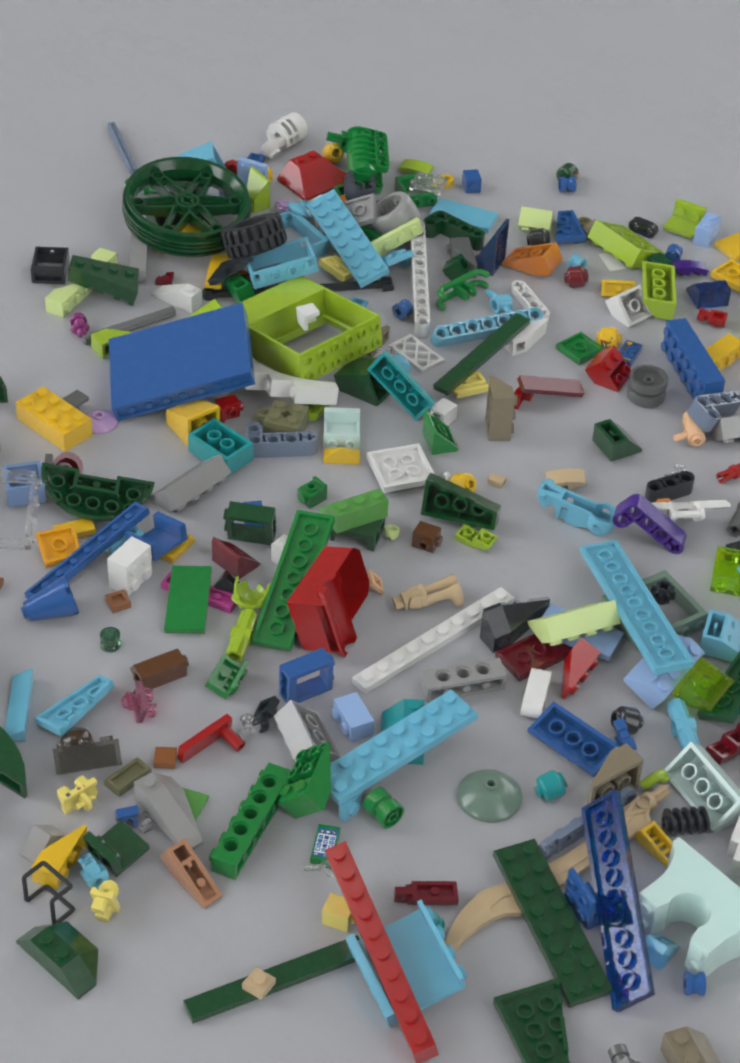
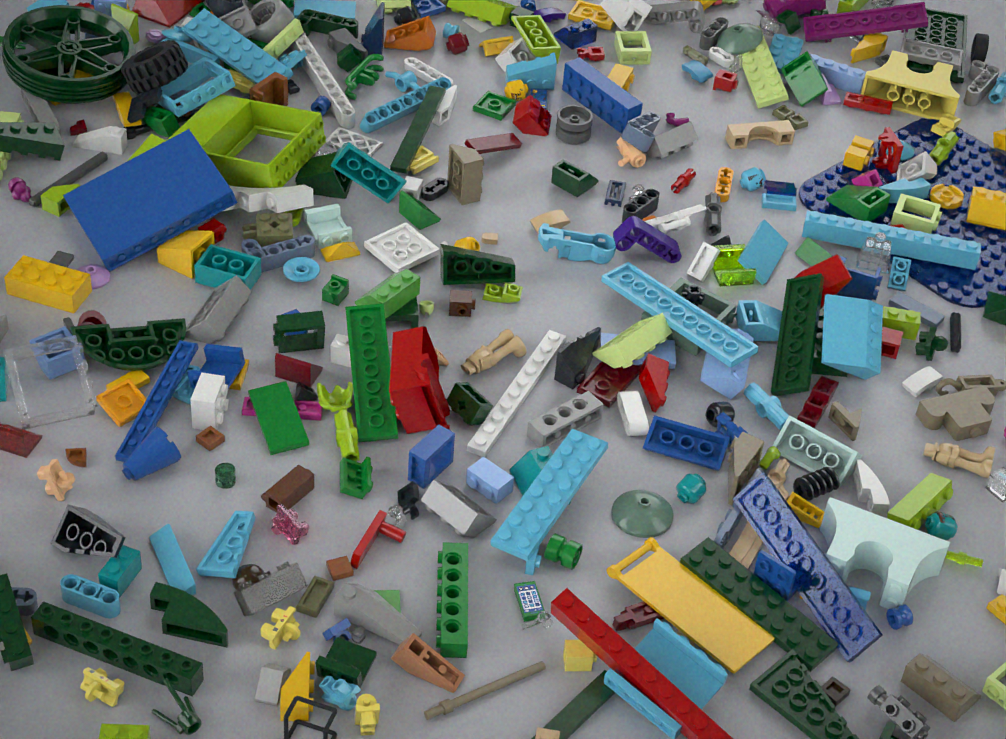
camera: 25 degrees left, 0 degrees up
(188, 918) = (447, 706): none -> dark tan bar
(291, 464) = (301, 269): none -> medium azure dish
(306, 314) = (252, 128): white panel -> none
(308, 782) = (491, 547): green slope -> none
(356, 283) = (271, 90): none -> dark orange panel
(374, 636) = (469, 403): none -> dark green brick
(469, 418) = (434, 189): none -> black beam
(481, 903) = (692, 606): none -> yellow flag
(580, 1035) = (835, 690): none -> dark brown tile
(636, 325) = (535, 73): none -> medium azure wedge
(657, 470) = (613, 201): none -> dark blue tile
(700, 560) = (703, 261): none -> white tile
(703, 685) = (768, 367): clear neon green slope -> none

